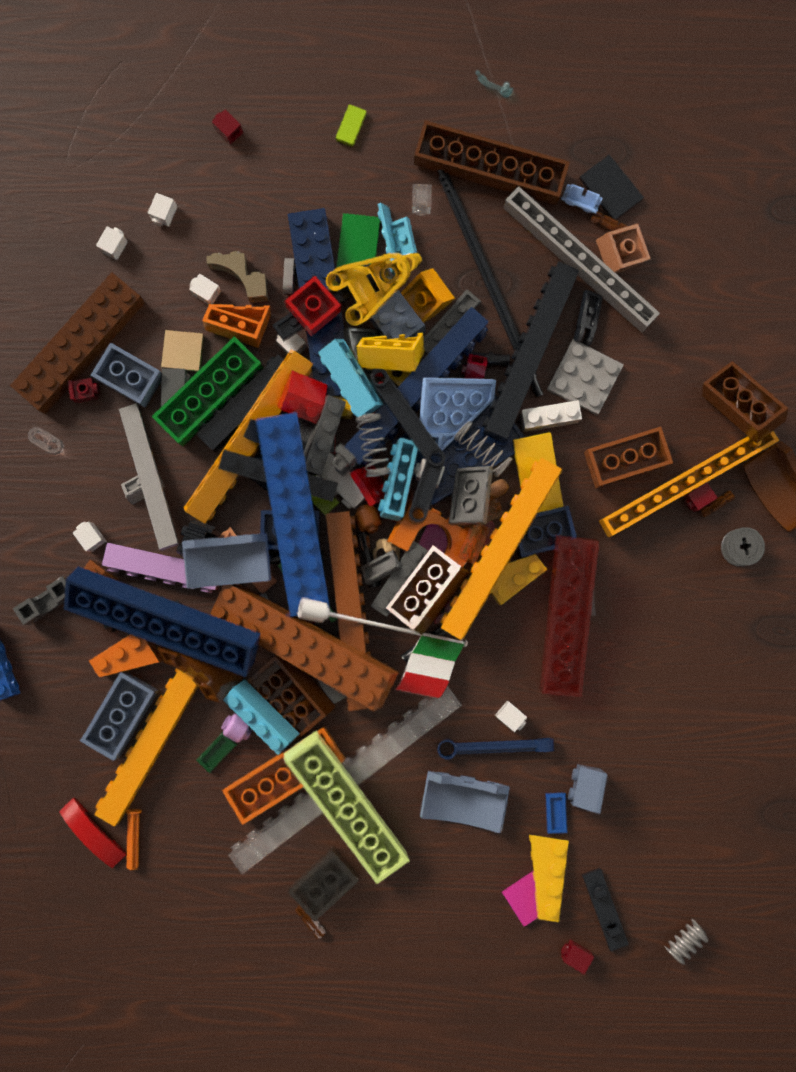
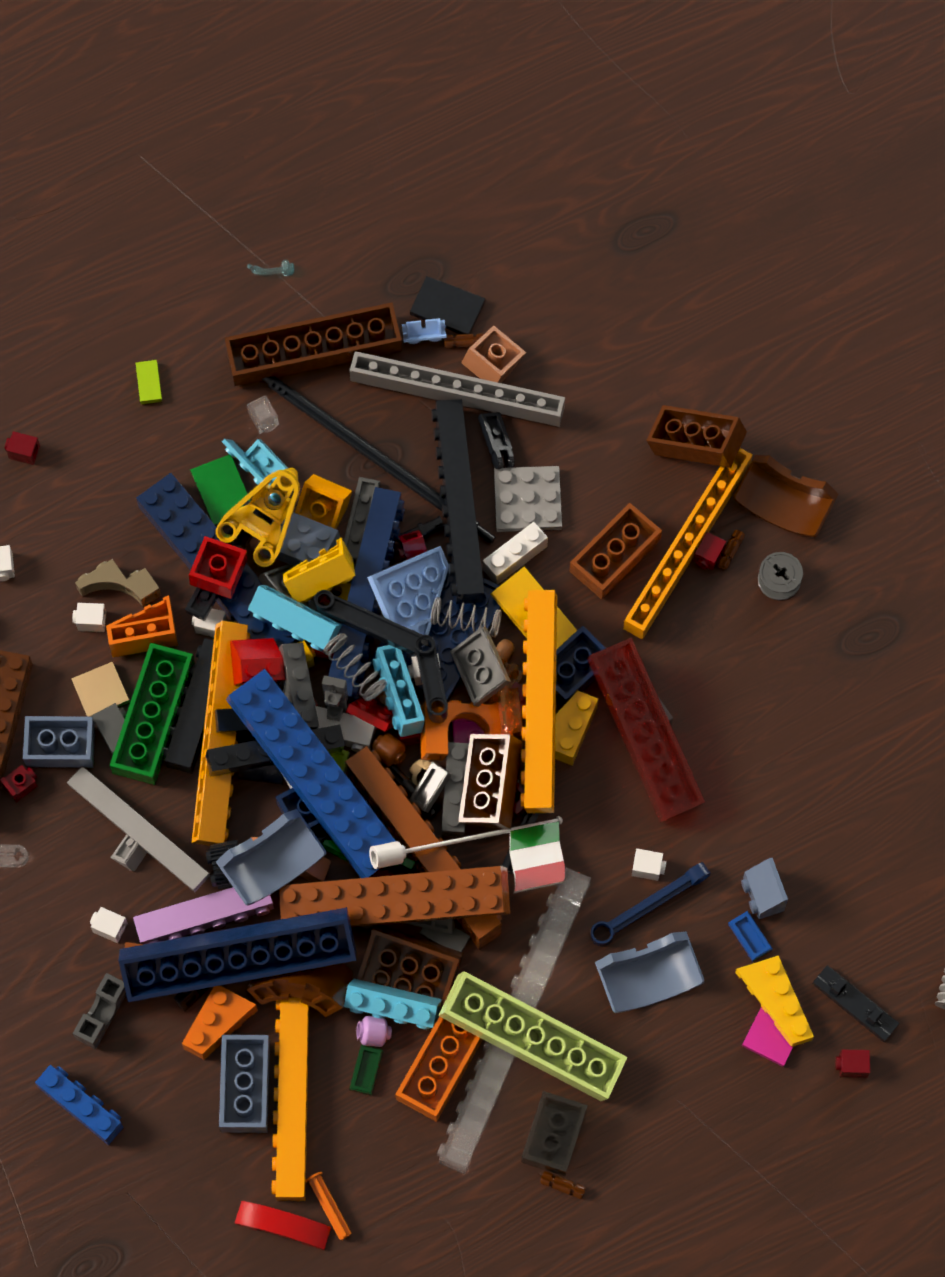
camera: 30 degrees left, 15 degrees down
(289, 276) = (169, 558): light grey beam -> none

